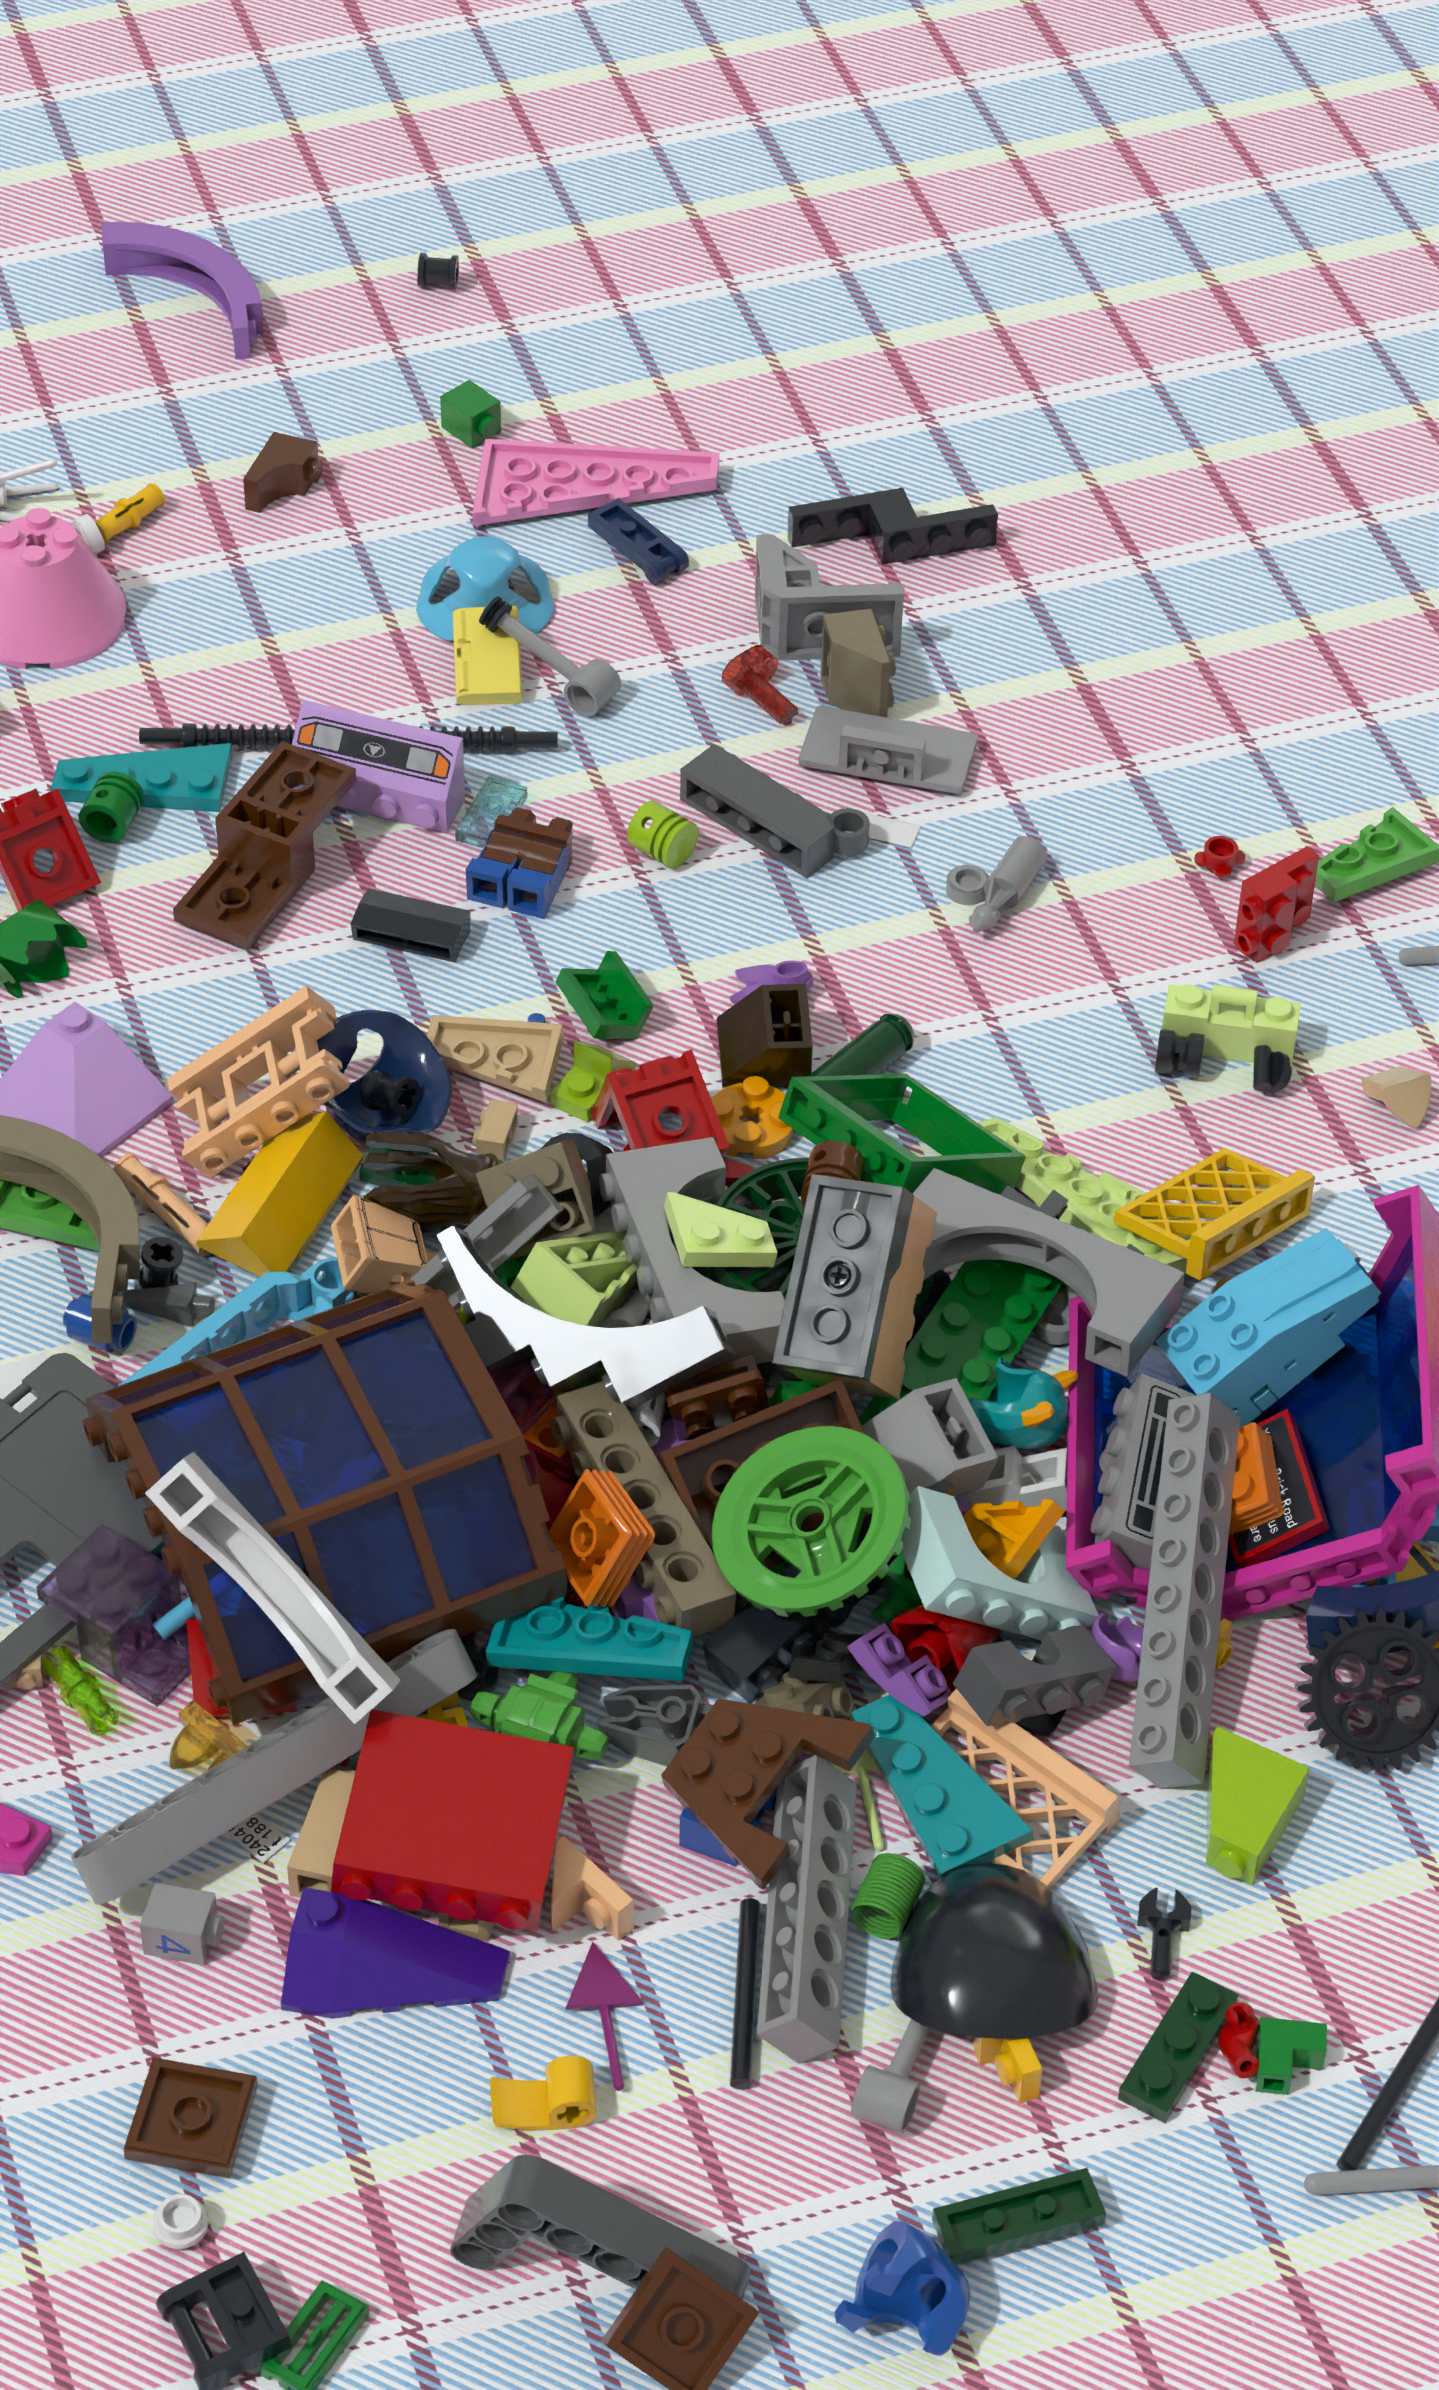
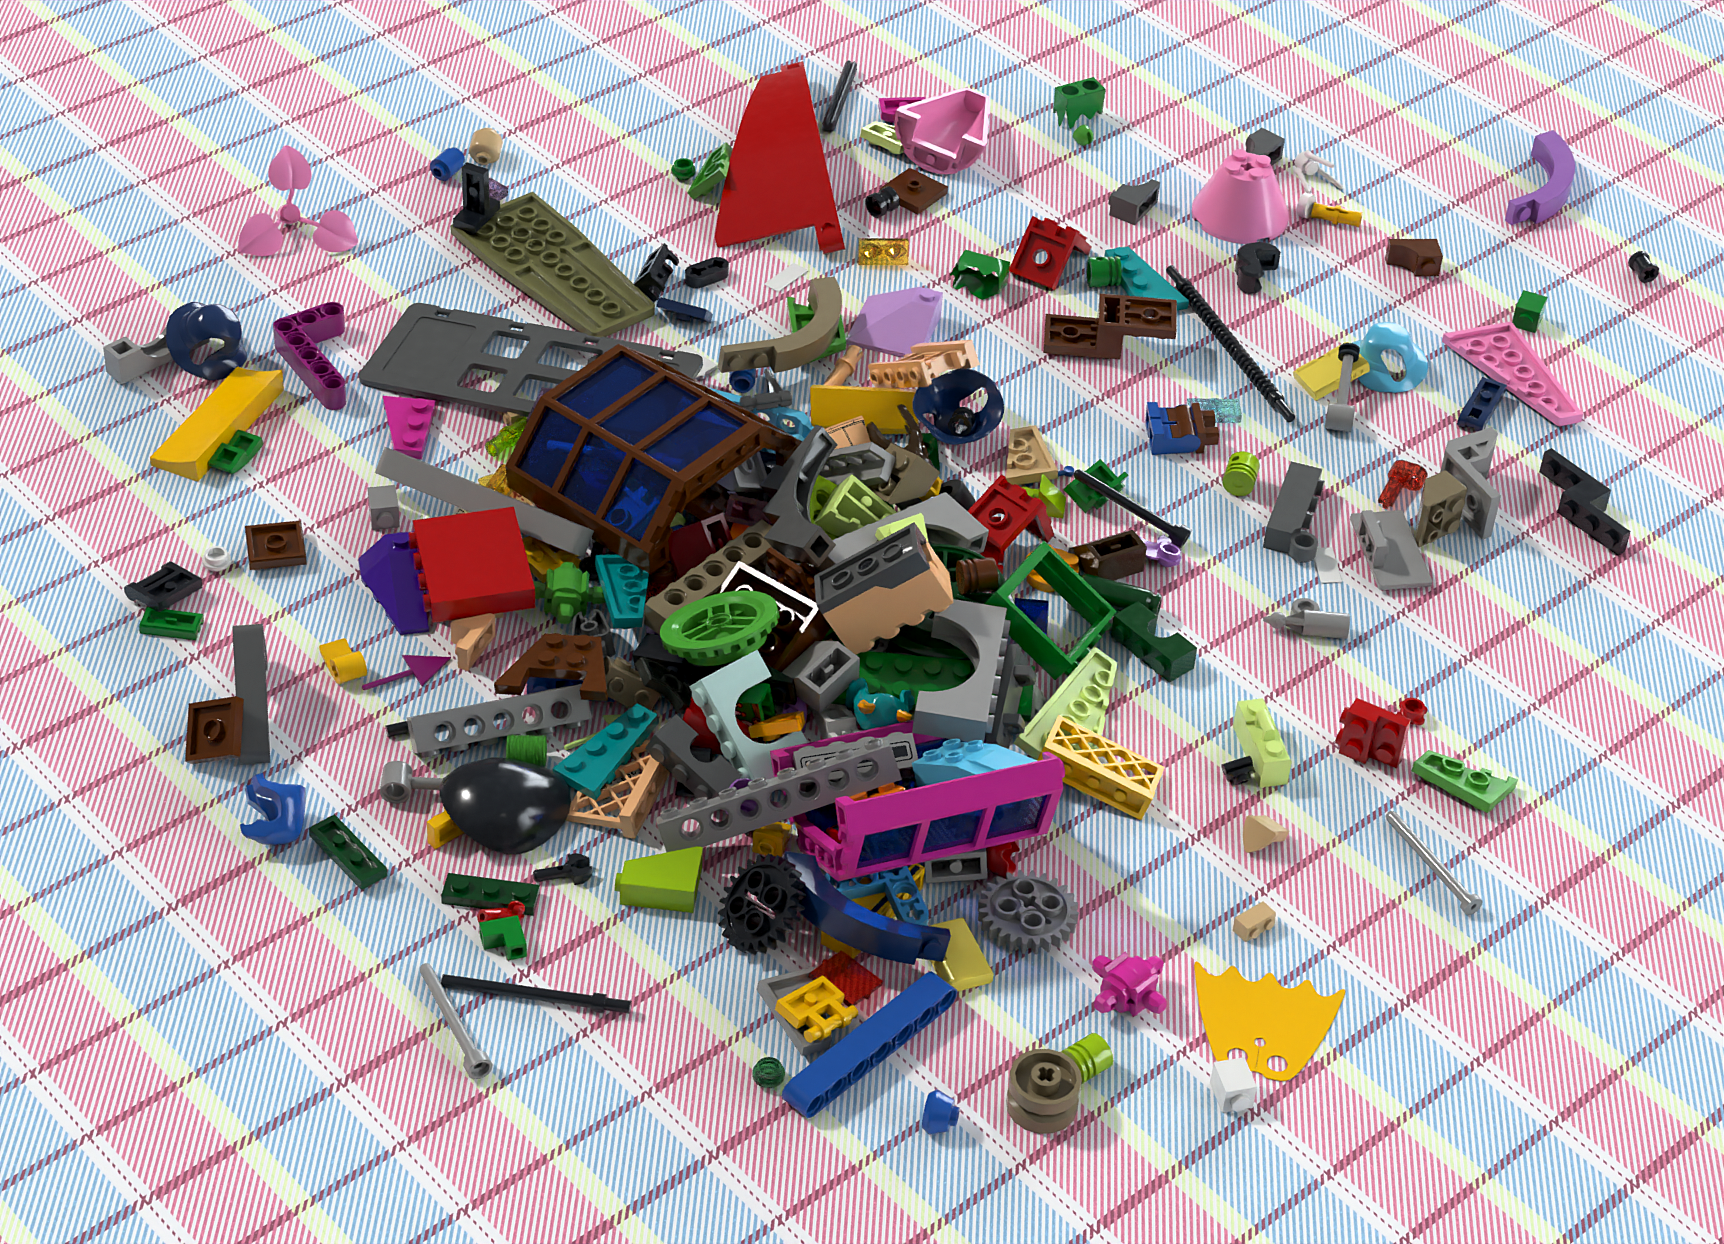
camera: 65 degrees right, 5 degrees down
(160, 1260) = (787, 375): black bush -> none
(197, 649) = (1252, 262): none -> black animal
(225, 1307) = (766, 400): none -> dark grey axle
(320, 1635) = (557, 380): white arch -> none
(399, 767) = (1200, 351): lavender slope -> none
(411, 925) = (1102, 402): black piece -> none
(496, 1129) = (974, 474): tan piece -> none
(600, 1537) = (675, 560): orange brick -> none
(754, 950) = (1176, 533): none -> black piece
(915, 1684) = (671, 701): medium lavender slope -> none
(1009, 1060) = (1167, 656): none -> dark green arch
(1190, 1052) = (1224, 727): black wheel -> none

